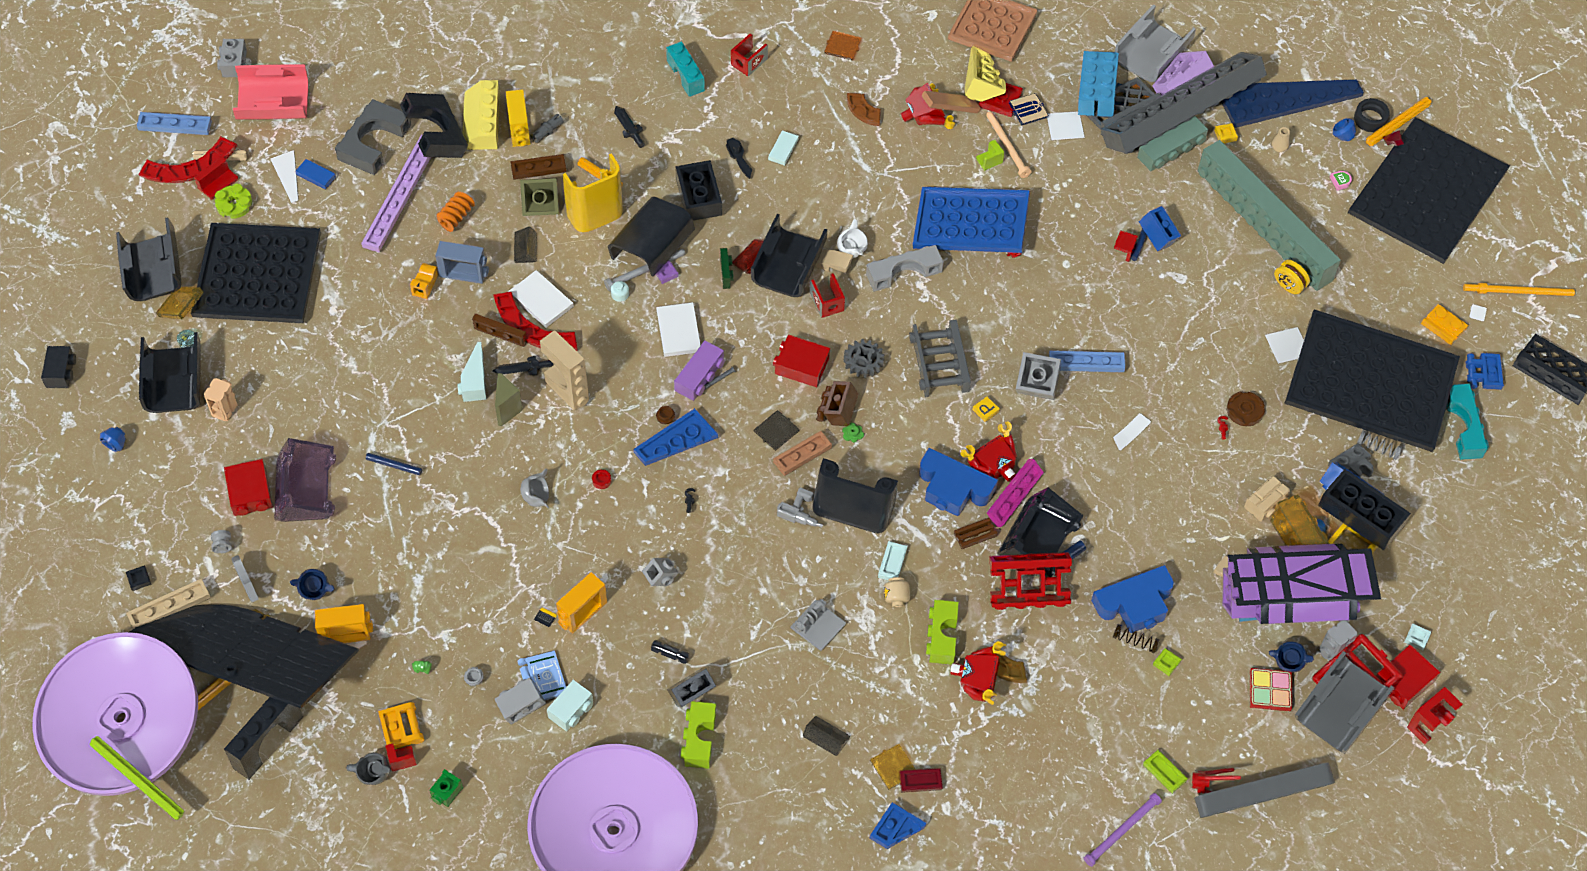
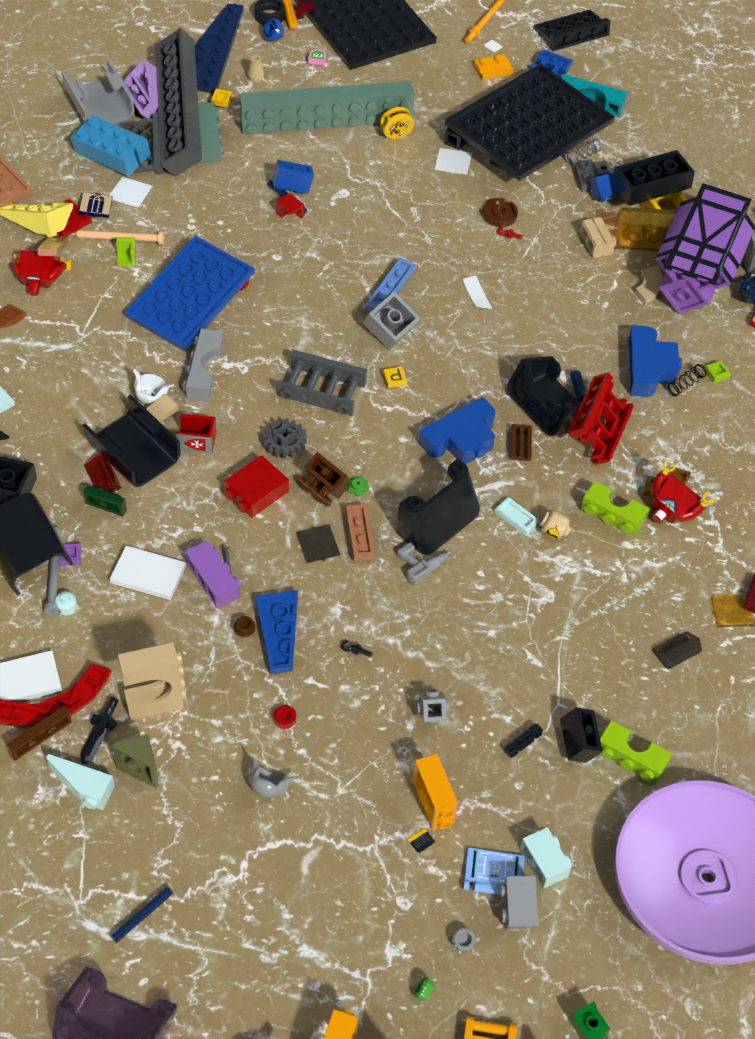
camera: 65 degrees left, 5 degrees down
(818, 624) = (555, 603): light grey hinge -> none
(995, 457) = (452, 388): red torso -> none
(1015, 492) = (501, 400): dark pink plate -> none

